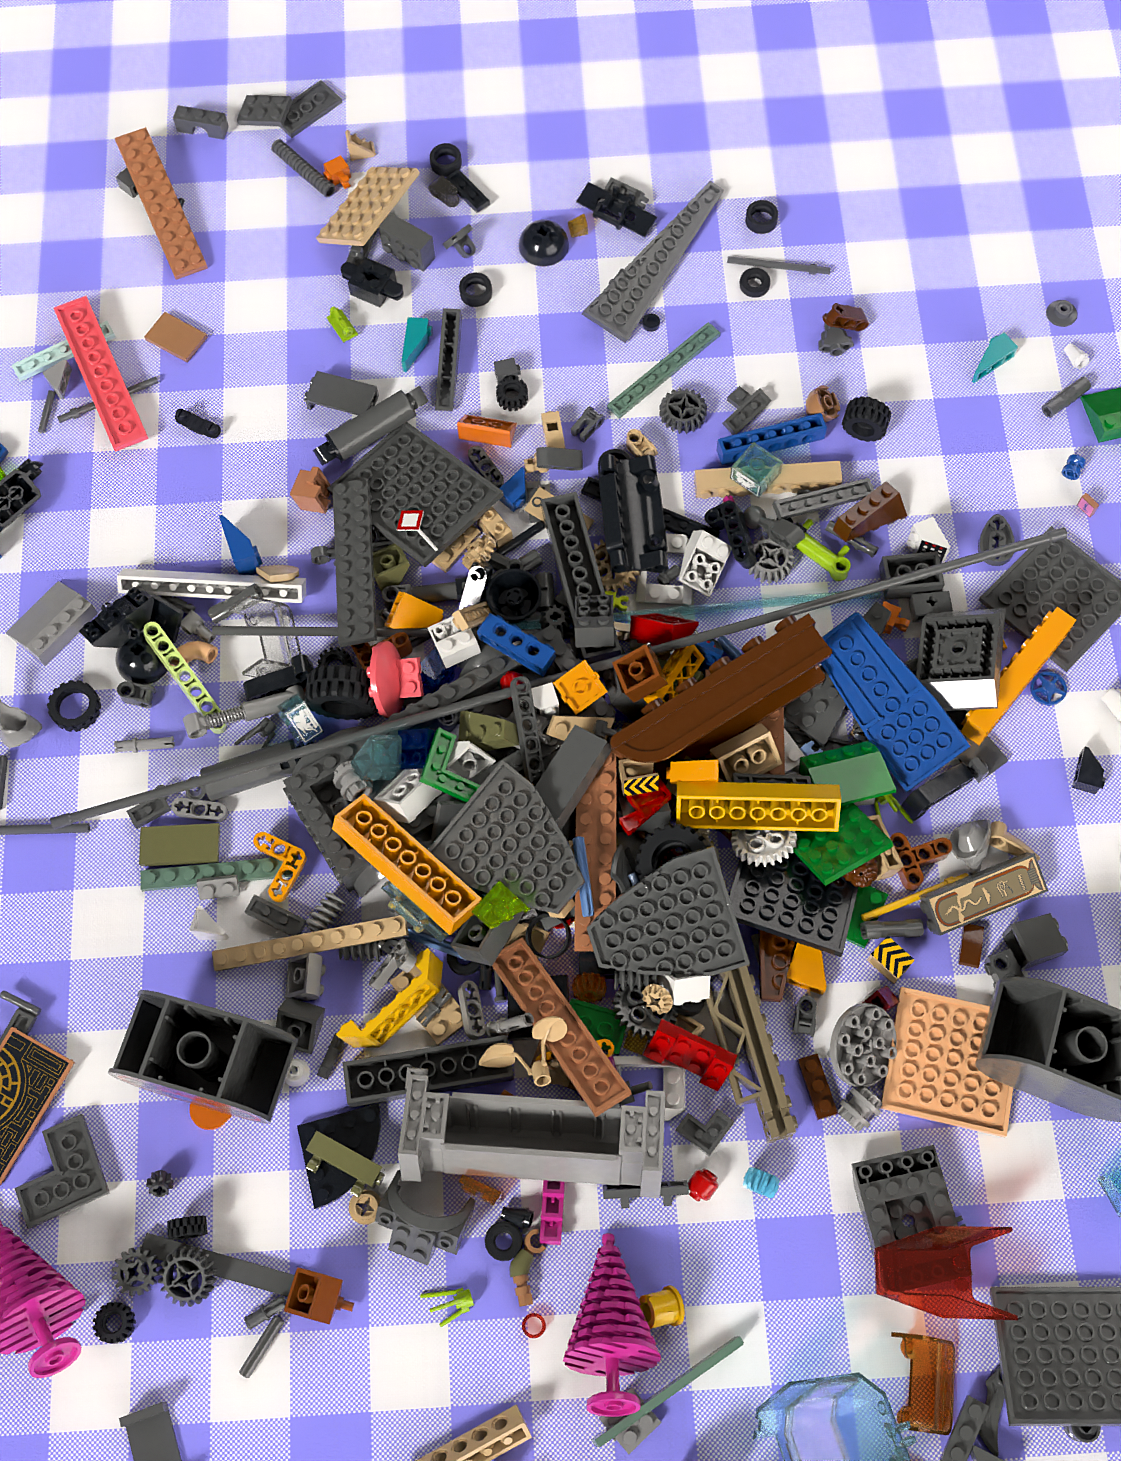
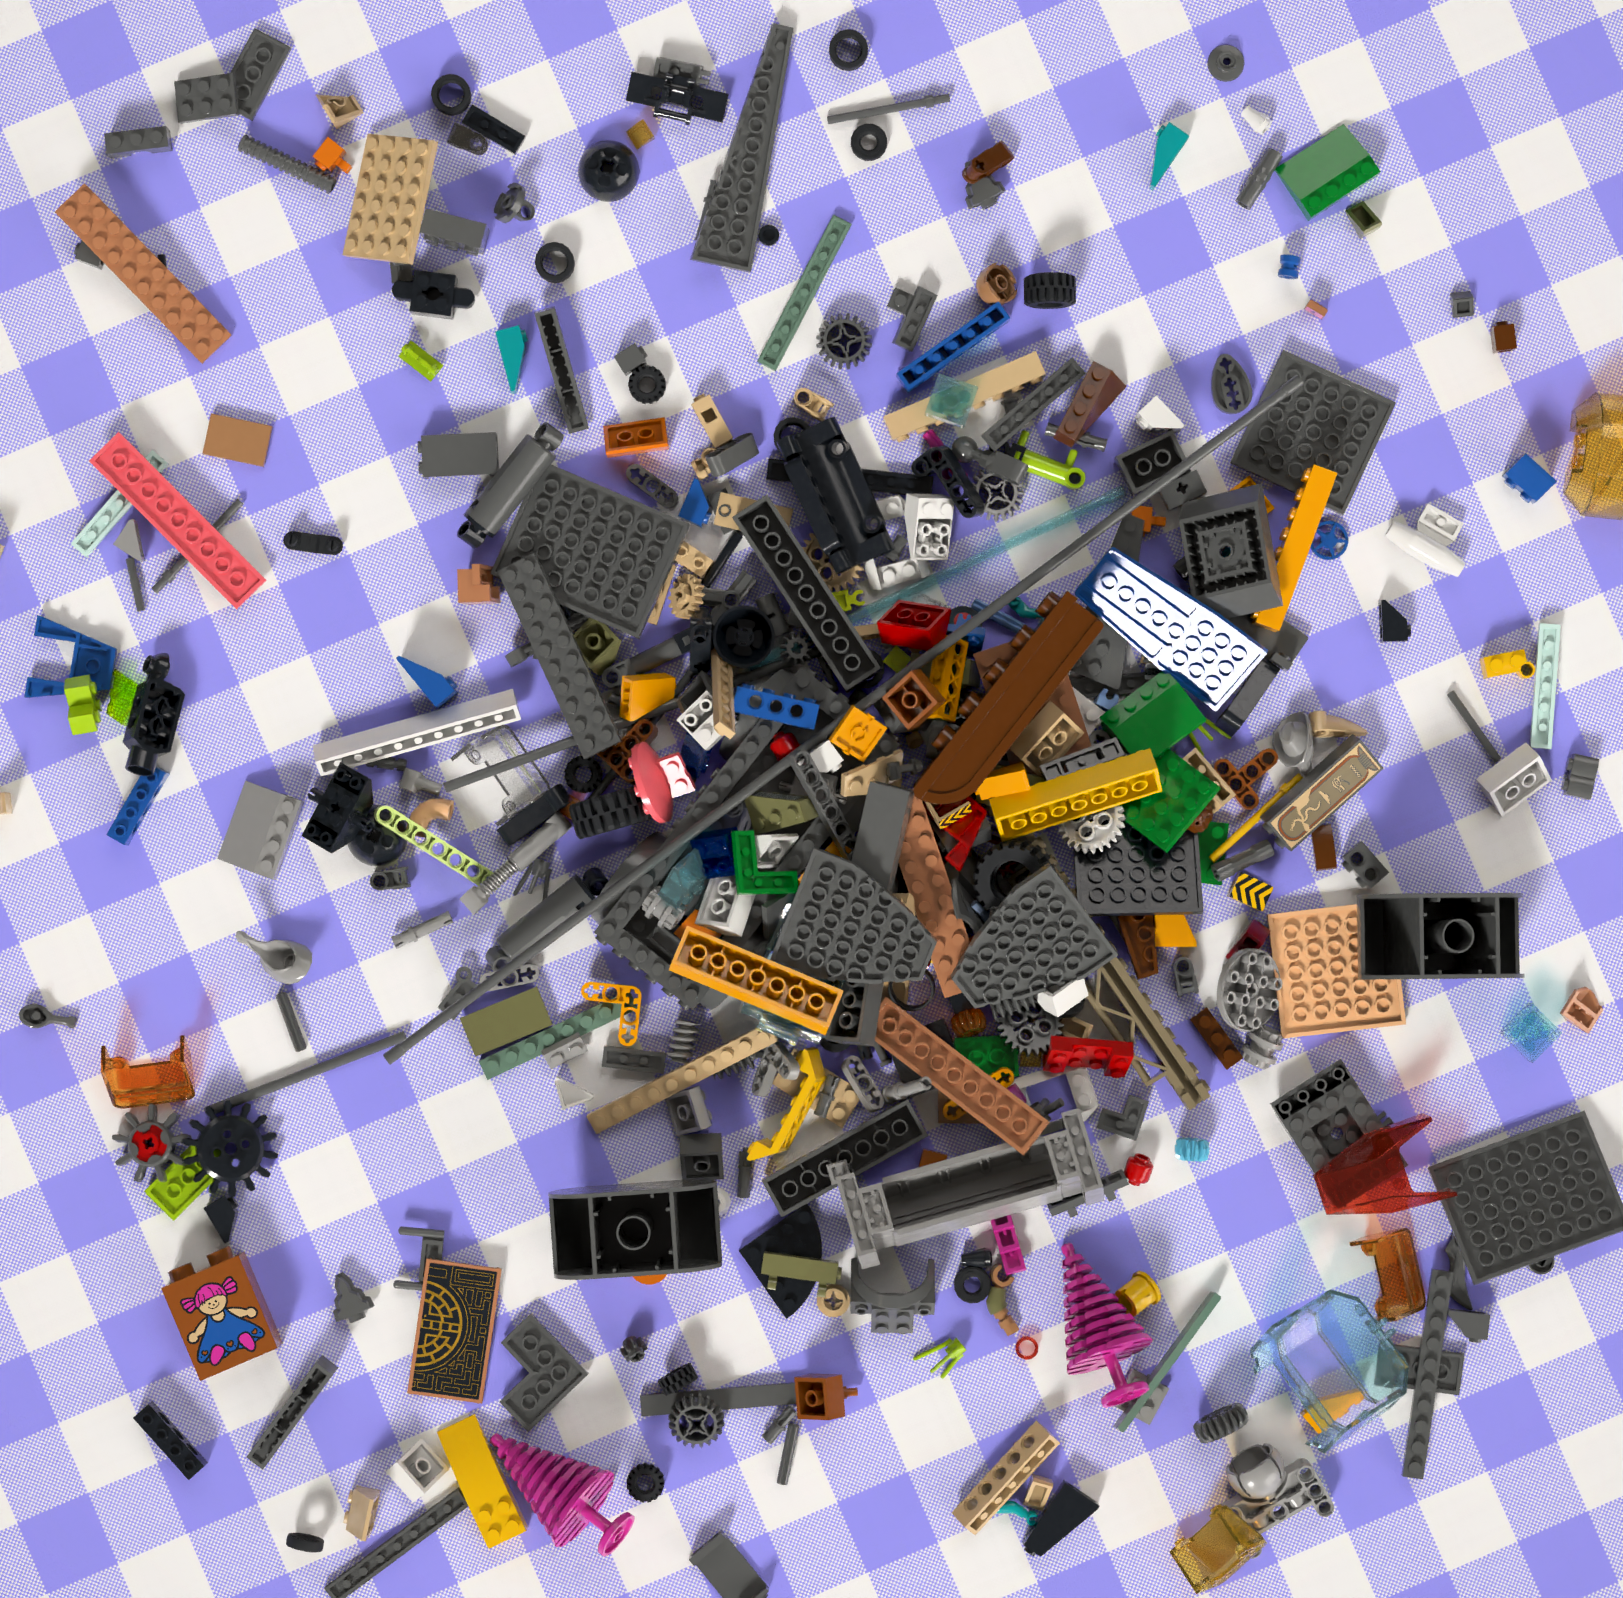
camera: 20 degrees left, 20 degrees up
(82, 721) = (312, 900): black tyre -> none
(130, 1278) = (638, 1432): dark grey gear -> none
(167, 617) = (386, 788): black plate -> none
(221, 610) = (442, 755): dark grey axle -> none
(278, 573) = (481, 694): tan tile -> none
(301, 720) = (576, 853): clear light blue brick -> none
(411, 521) = (603, 591): piece -> none
(474, 1187) = (945, 1250): clear orange plate -> none
(499, 906) = (863, 992): clear neon green slope -> none
(549, 1029) = (955, 1126): tan plant -> none
(585, 890) = (926, 919): medium blue axle -> none
(589, 418) = (750, 390): dark grey piece -> none
(594, 621) = (843, 646): dark grey slope -> none
(656, 991) = (1040, 1016): tan gear -> none
(1035, 940) = (1385, 823): dark grey slope -> none

